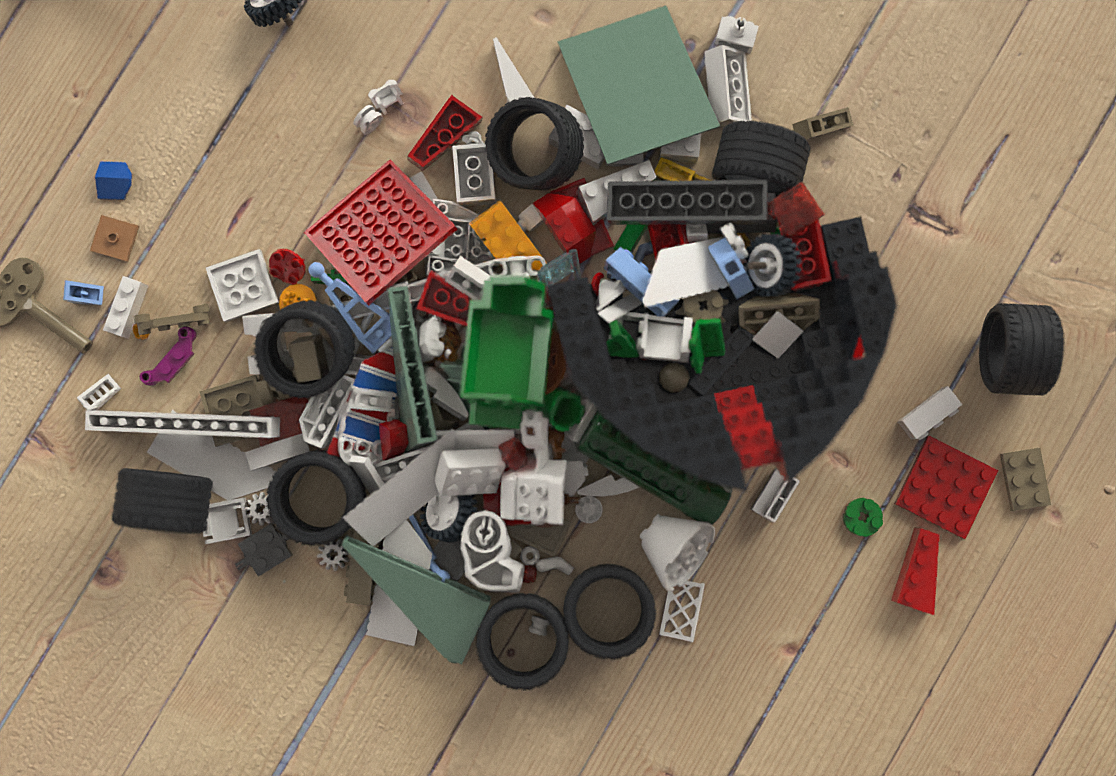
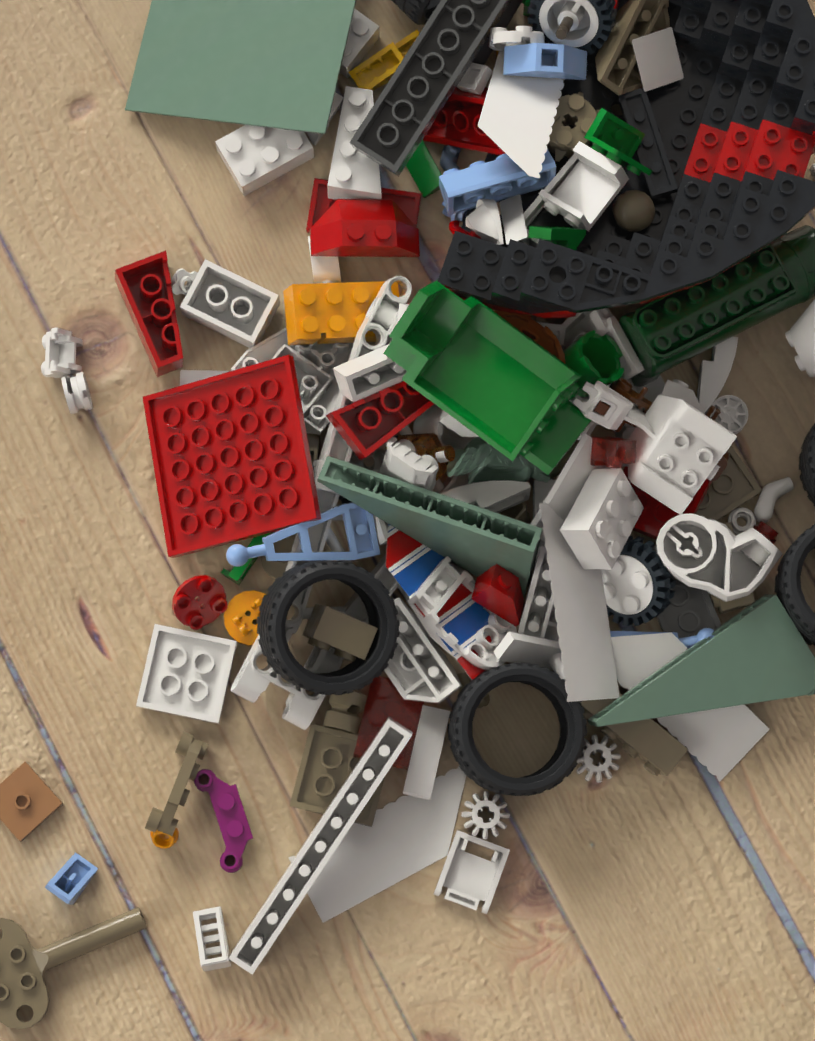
camera: 60 degrees left, 5 degrees down
(125, 306) = (123, 836): white brick -> none
(161, 501) = (407, 920): black tyre -> none
(264, 550) = (538, 843): dark grey plate -> none
(500, 139) = (216, 250): black tyre -> none
(512, 81) = (150, 193): white slope -> none
(557, 270) = (417, 261): clear light blue plate -> none

